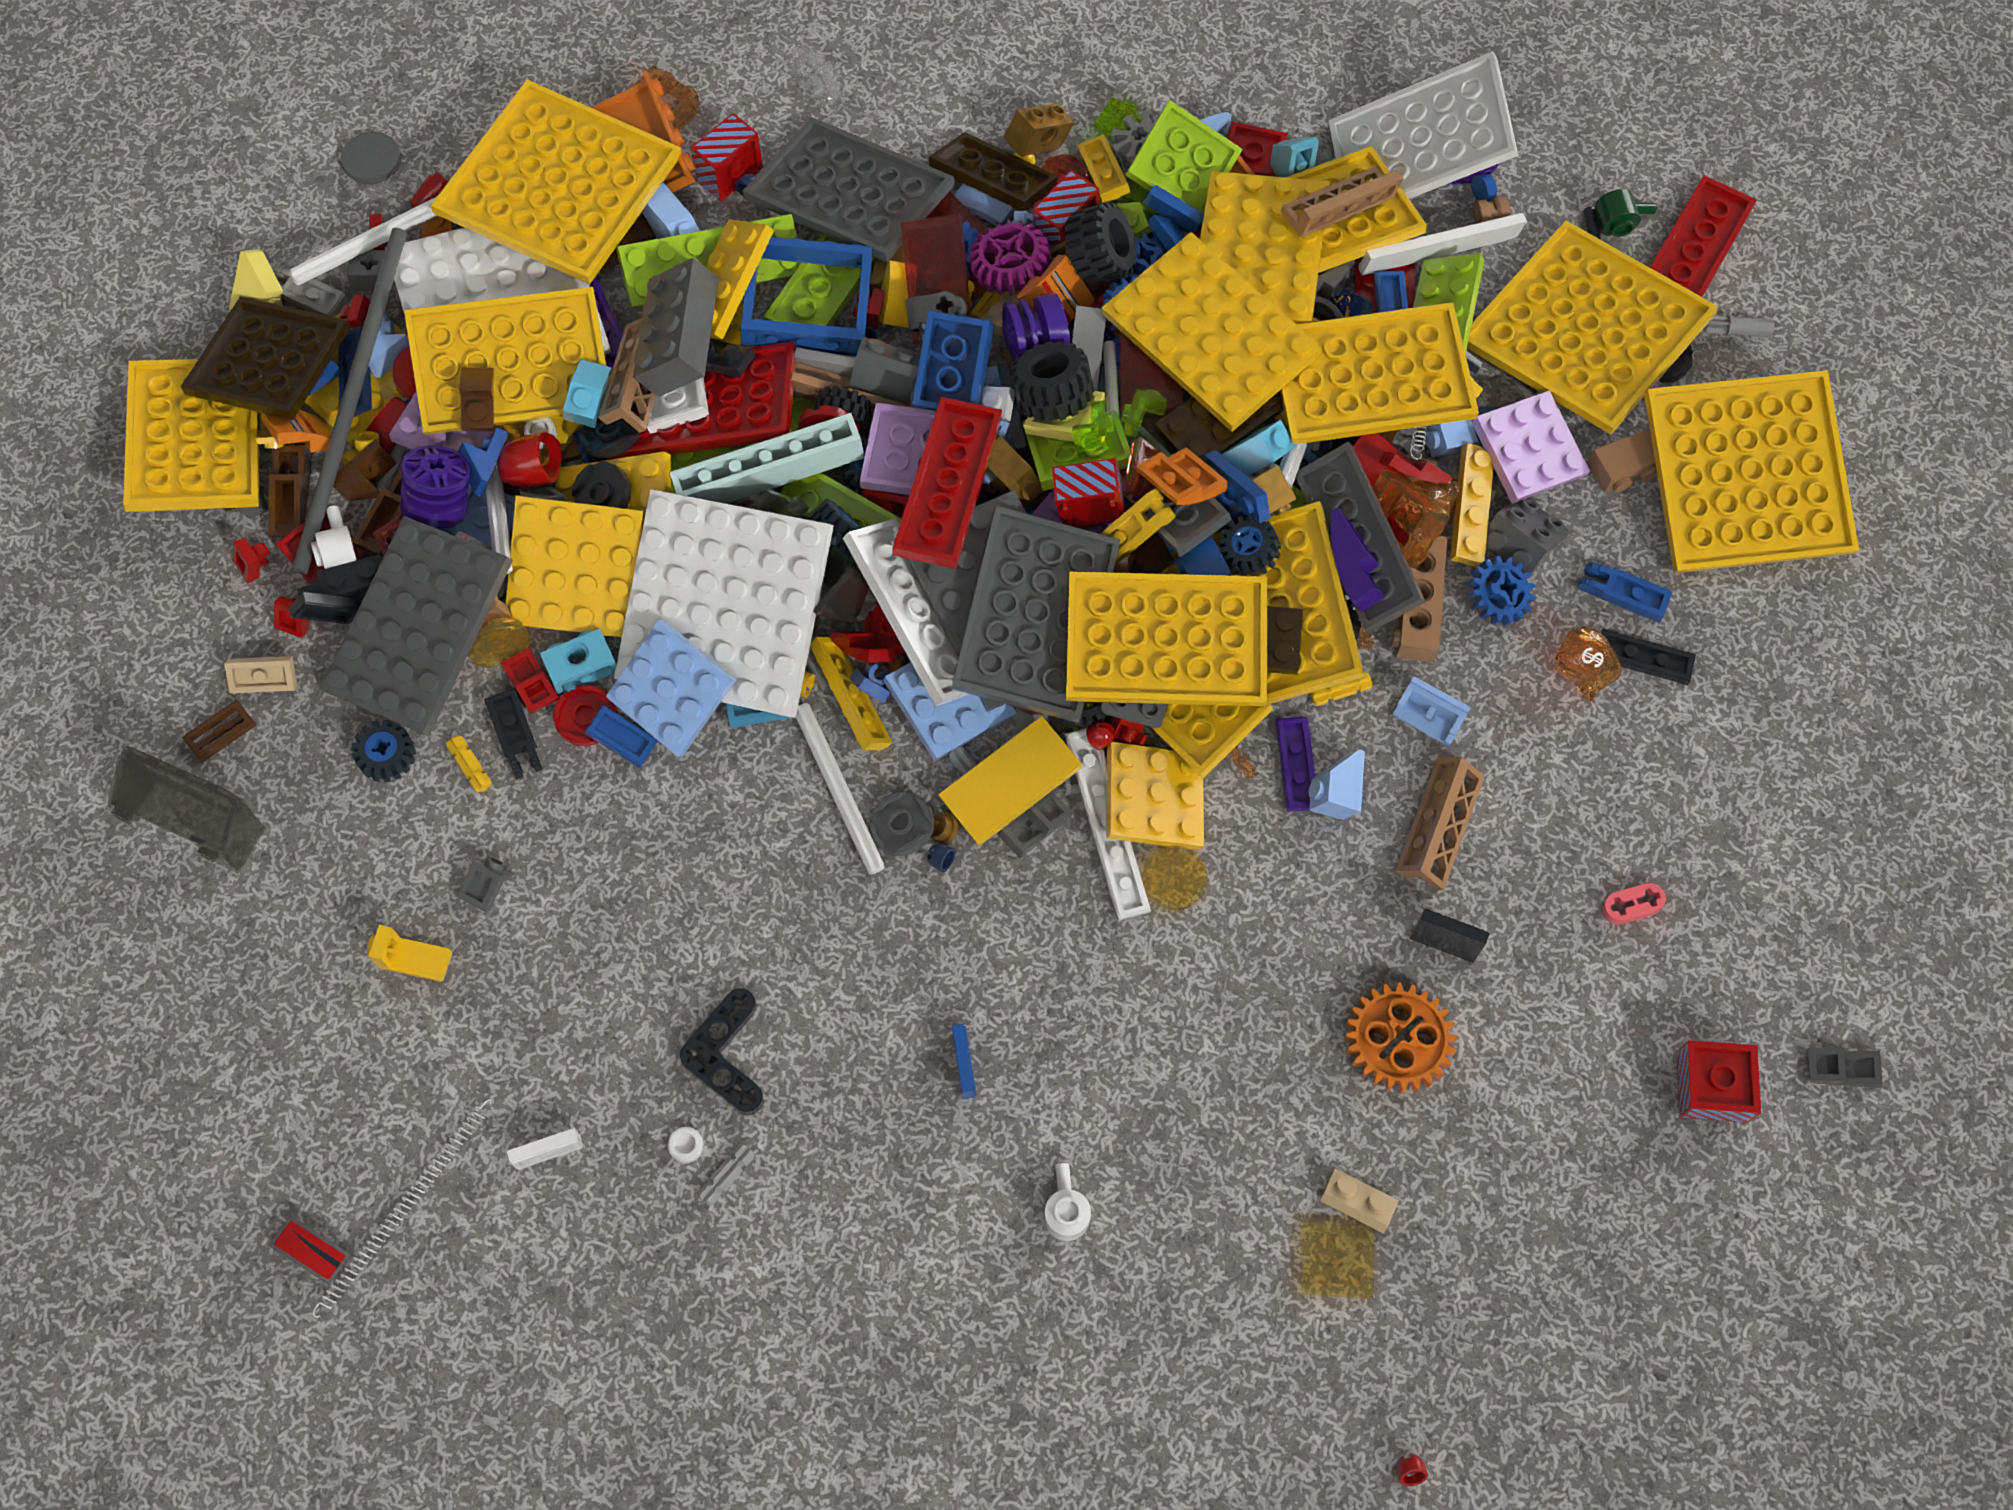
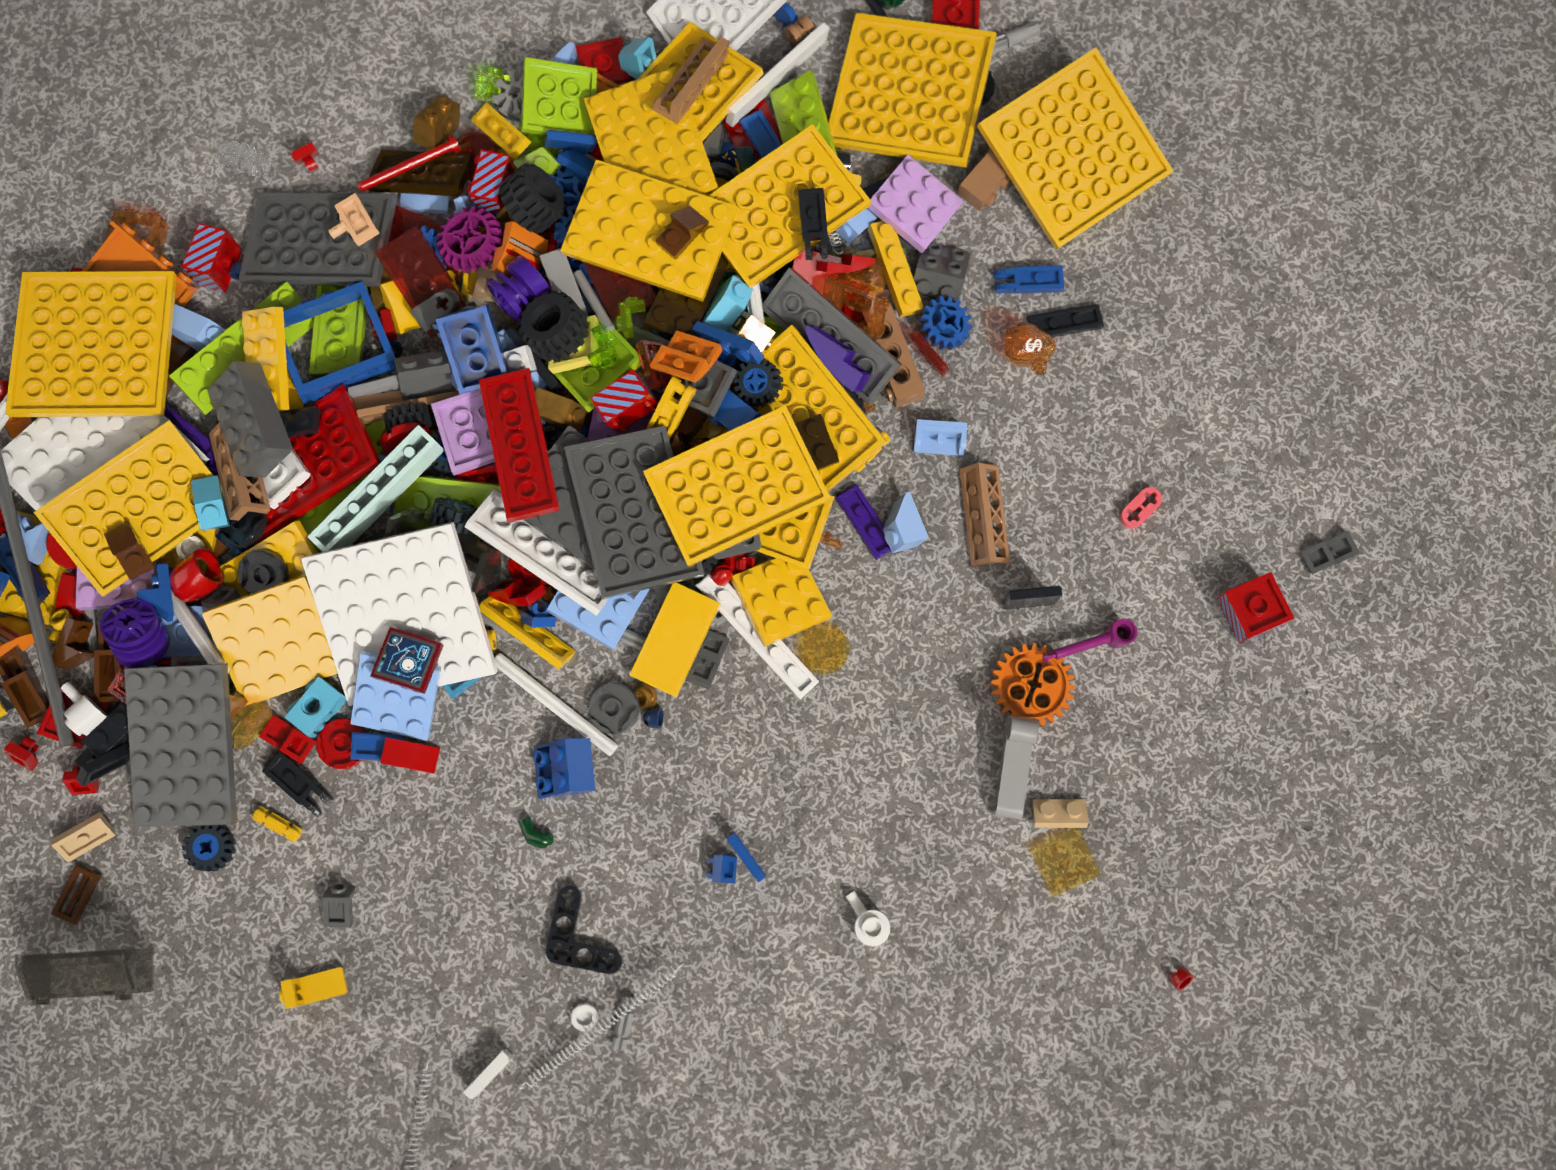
camera: 25 degrees left, 10 degrees up
(650, 762) = (410, 755): none -> red slope
(698, 1164) = (600, 1026): none -> white piece
(704, 650) = (407, 660): none -> slope
(737, 918) = (533, 836): none -> dark green arm
(811, 859) = (564, 768): none -> blue slope
(882, 102) = (305, 155): none -> red tile
(897, 183) = (354, 220): none -> light nougat plate
(931, 1060) = (723, 869): none -> blue tile
(975, 156) = (409, 164): none -> red bar
(1246, 345) = (682, 231): none -> reddish brown slope
(1331, 1116) = (1014, 765): none -> light grey beam
(1401, 401) = (813, 220): none -> black hinge
(1465, 614) = (929, 353): none -> clear red tile
(1522, 1029) = (1109, 637): none -> magenta piece

